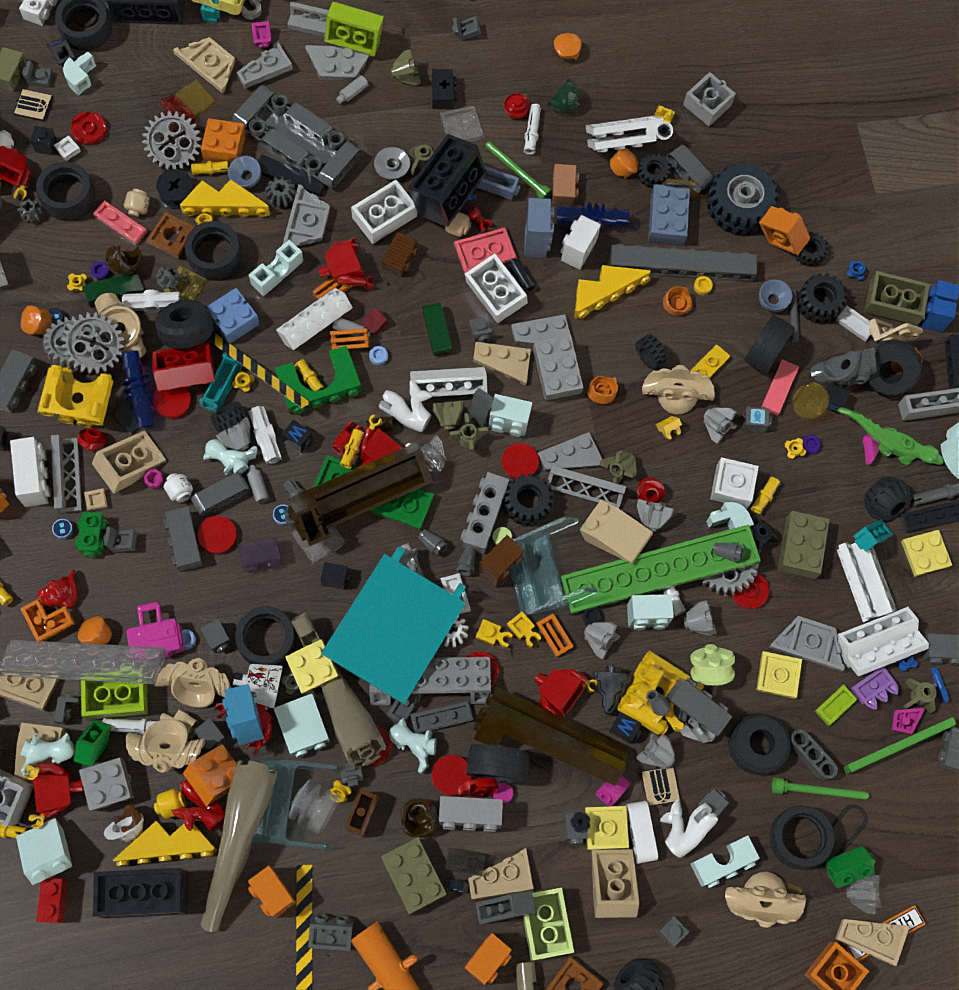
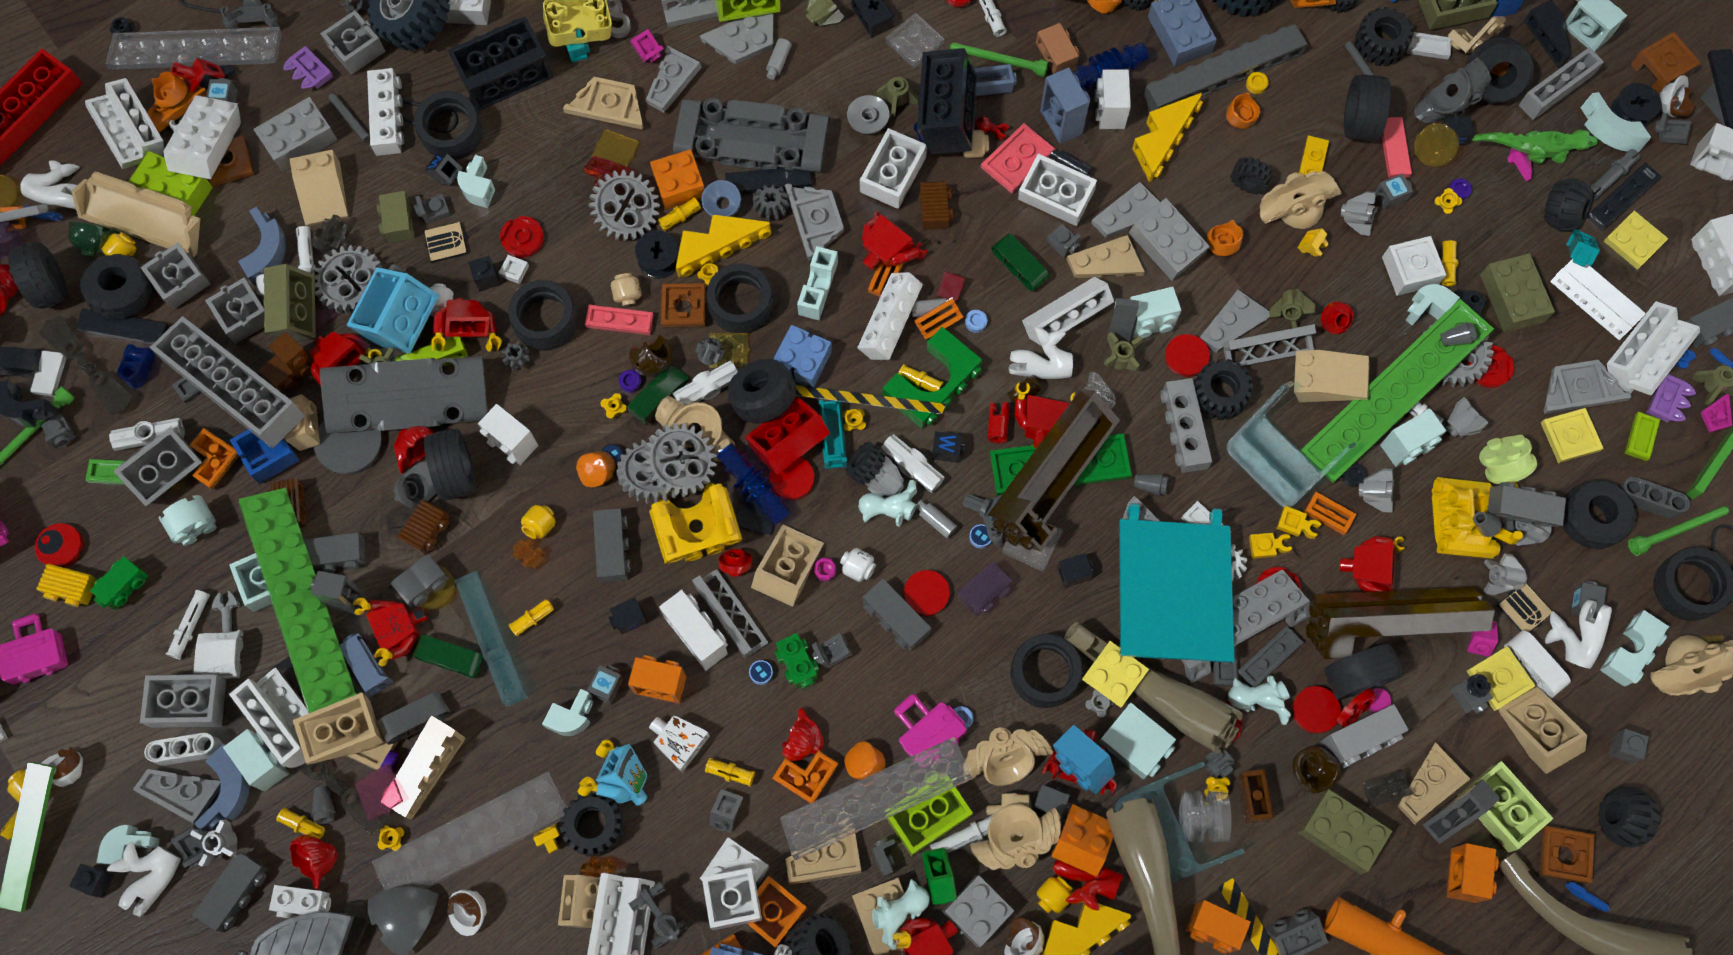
camera: 20 degrees left, 0 degrees up
(96, 500) = (777, 623): tan tile -> none
(216, 636) = (993, 697): dark grey brick -> none
(220, 494) = (904, 548): dark grey beam -> none
(262, 681) = (1074, 711): white torso -> none
(352, 449) = (1016, 442): yellow pin -> none
(448, 413) = (1087, 343): olive brick -> none
(458, 886) = (1393, 817): black tile -> none
(466, 562) = (1198, 485): dark grey cone -> none
(499, 534) = (1217, 441): yellowish green tile -> none
(499, 560) = (1237, 465): reddish brown brick -> none
(612, 686) = (1420, 534): black rock -> none
(625, 728) = (1457, 568): black brick -> none
(653, 514) = (1354, 339): light grey brick -> none
(779, 290) = (1339, 50): sand blue piece -> none

